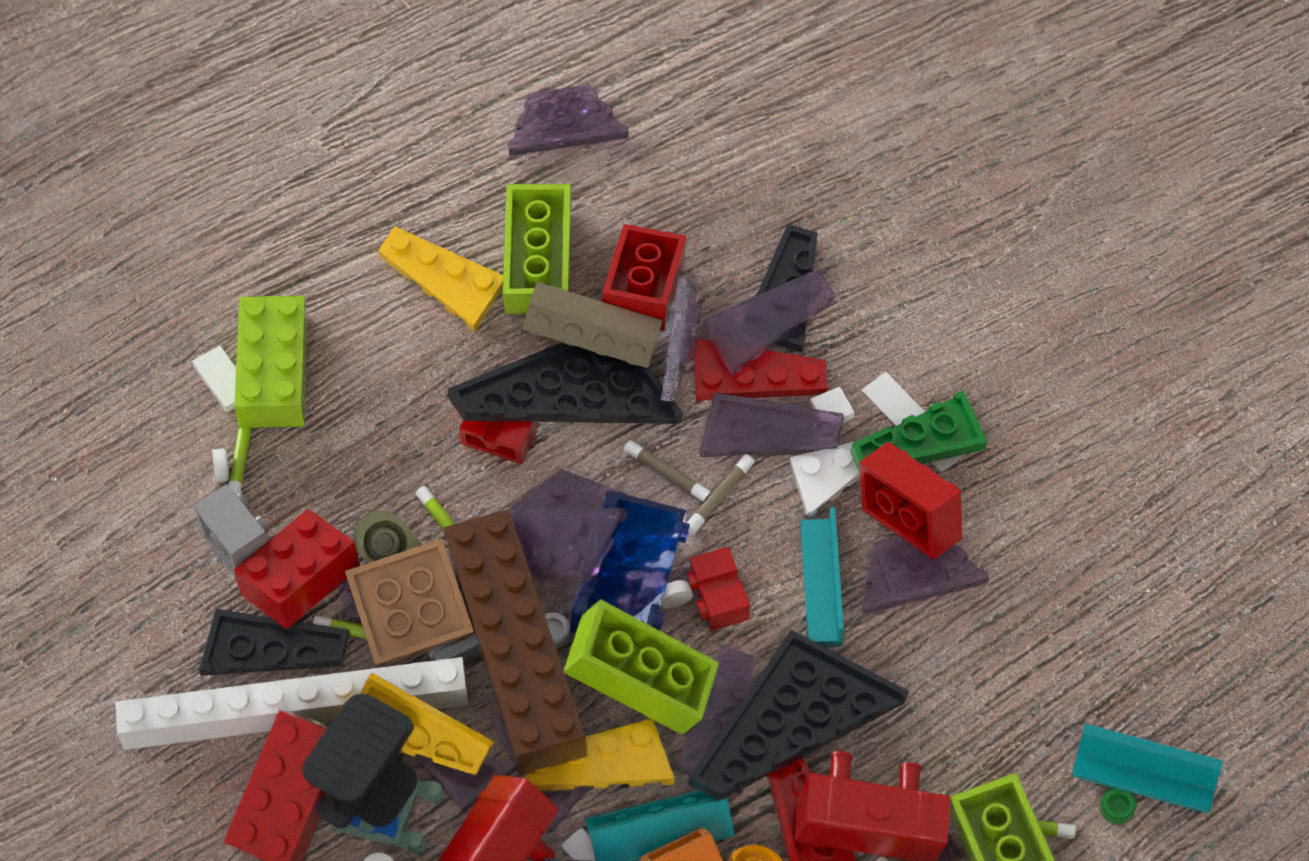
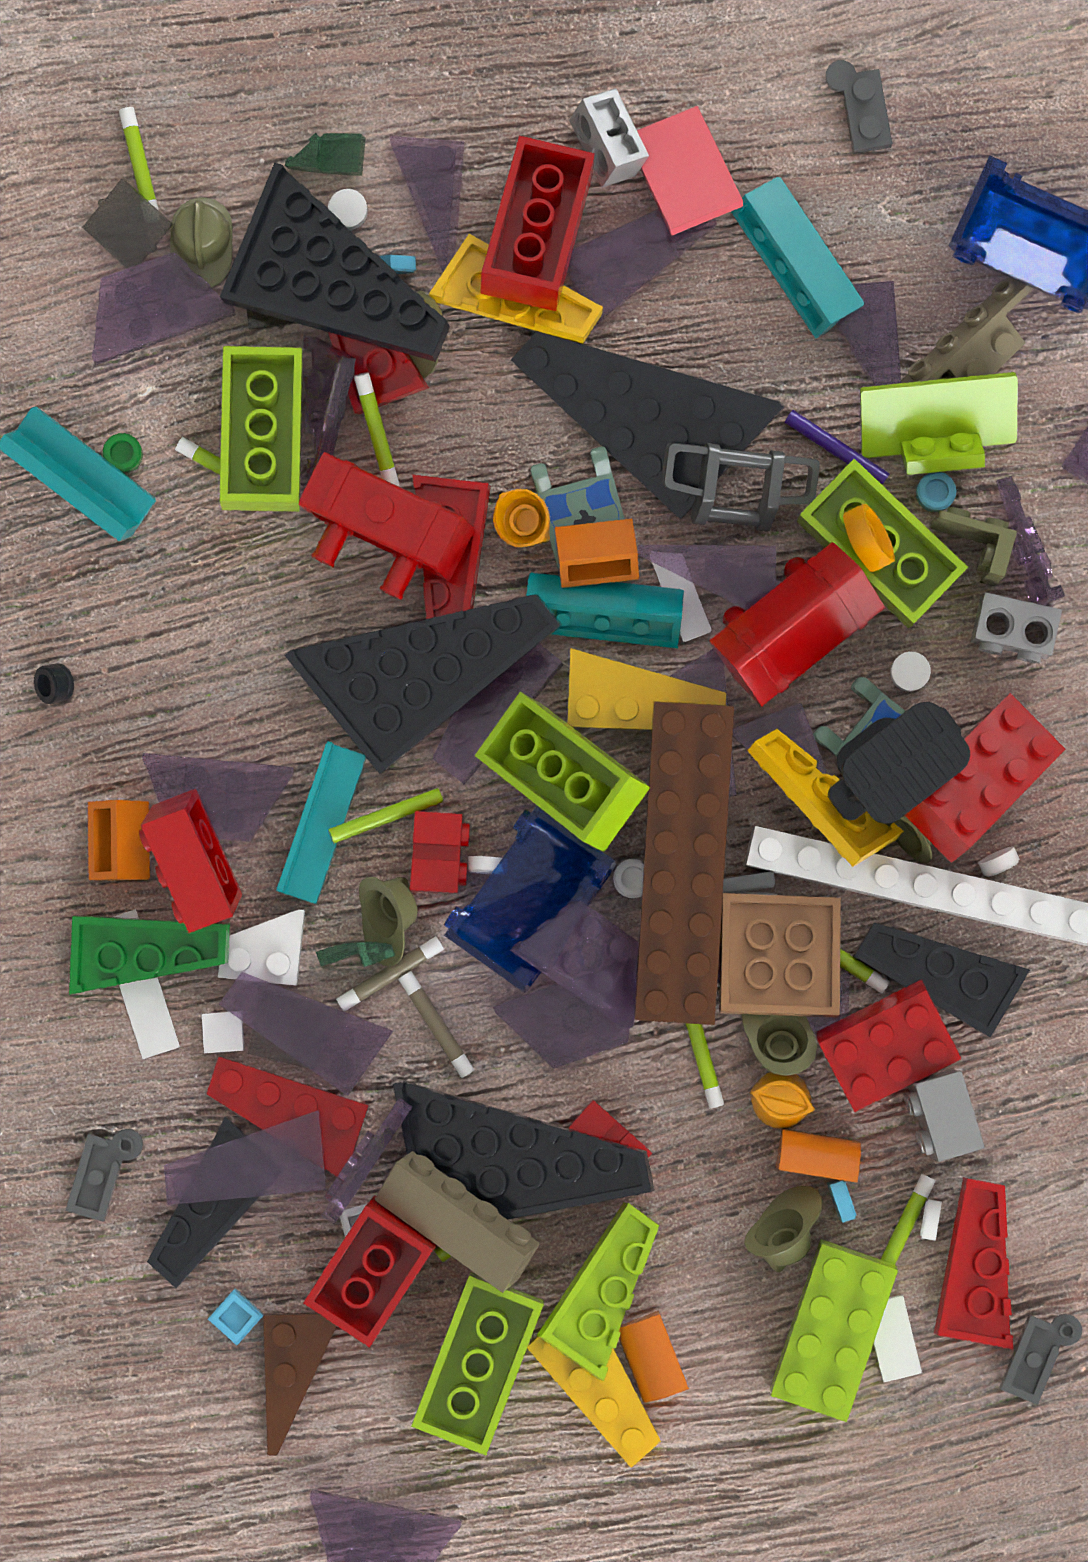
camera: 160 degrees left, 25 degrees up
(104, 403) = (1037, 1354): none -> dark grey hinge
(170, 440) = (975, 1282): none -> red wing
(251, 745) = (999, 861): none -> white tile
(296, 454) = (841, 1200): none -> medium azure tile
(325, 477) = (819, 1155): none -> orange brick
(335, 418) = (784, 1227): none -> olive piece
(366, 503) = (781, 1100): none -> light orange hat
(404, 303) = (652, 1358): none -> orange brick
(463, 318) = (594, 1305): none -> lime wing
(678, 204) = (292, 1355): none -> reddish brown wing
(734, 226) = (235, 1316): none -> medium azure tile
(738, 528) = (387, 913): none -> olive piece
(760, 494) = (369, 953): none -> clear green slope
(772, 603) = (385, 815): none -> lime bar
(881, 282) = (99, 1172): none -> dark grey hinge
(983, 511) = (115, 841): none -> orange brick
(1086, 603) = (53, 683): none -> black tile

